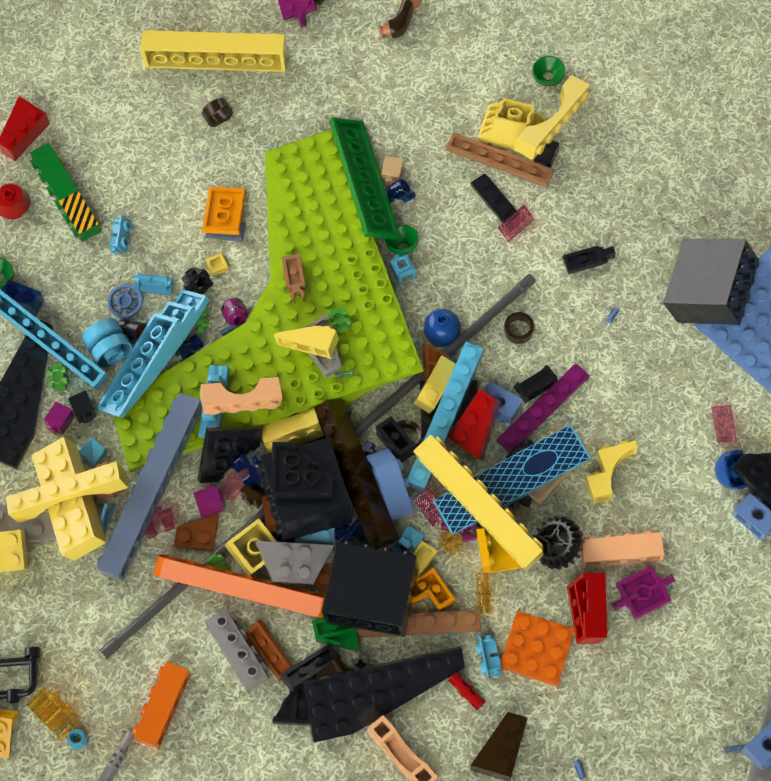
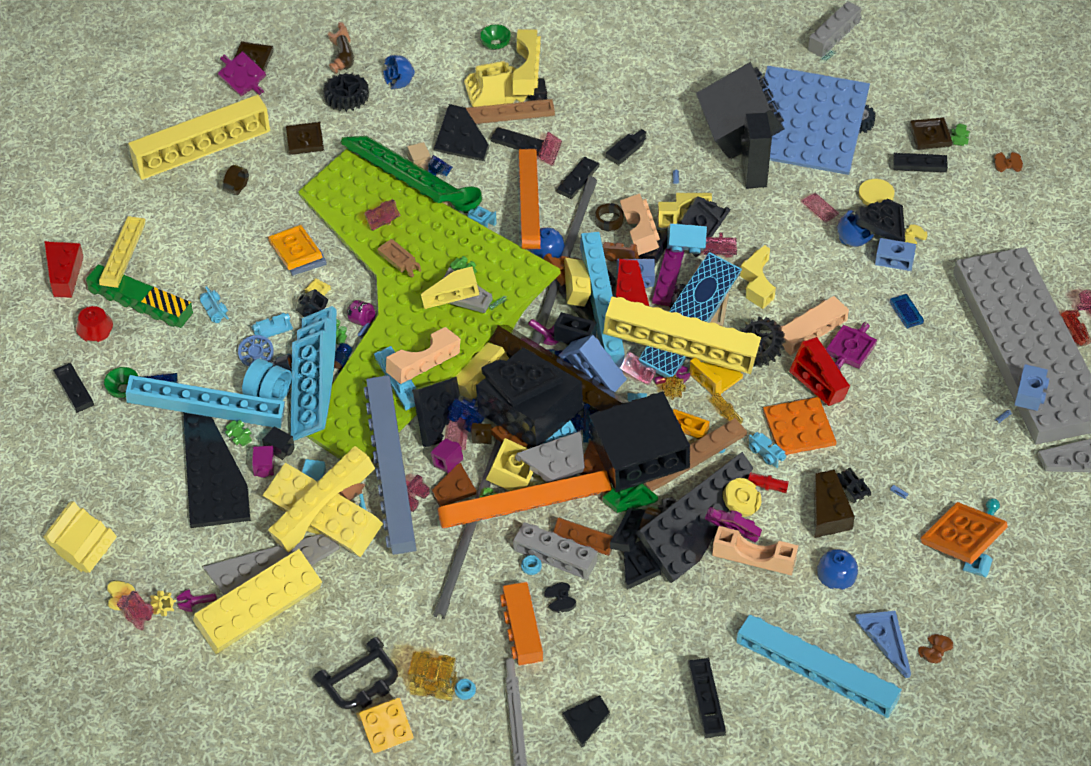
camera: 35 degrees left, 15 degrees down
(77, 139) = (122, 252): none -> light yellow tile
(209, 645) = (531, 559): none -> medium azure plate
(216, 691) = (564, 602): none -> black piece
(307, 96) = (304, 138): none -> dark brown plate
(309, 222) = (382, 214): none -> clear pink hips
(374, 416) = (548, 333): none -> magenta bar
(382, 70) = (346, 91): none -> black gear
(396, 720) = (734, 521): none -> magenta plate
(431, 693) = (742, 497): none -> light yellow tile
(436, 65) = (398, 68): none -> blue cylinder
(444, 166) = (461, 135): none -> black plate
(453, 273) = (529, 199): none -> orange beam
(493, 369) = (616, 251): none -> dark orange wing
(521, 267) = (577, 177): none -> black plate
(528, 371) = (645, 233): none -> light nougat arch
(538, 741) = (853, 484): none -> black arm
(565, 394) = (686, 237): none -> medium azure brick
(594, 354) = (671, 212): none -> light yellow arch
(595, 382) = (704, 214): none -> black wing
(596, 417) = (721, 246): none -> clear pink hips
(692, 335) = (756, 150): none -> black brick
(724, 583) = (906, 311): none -> clear blue tile

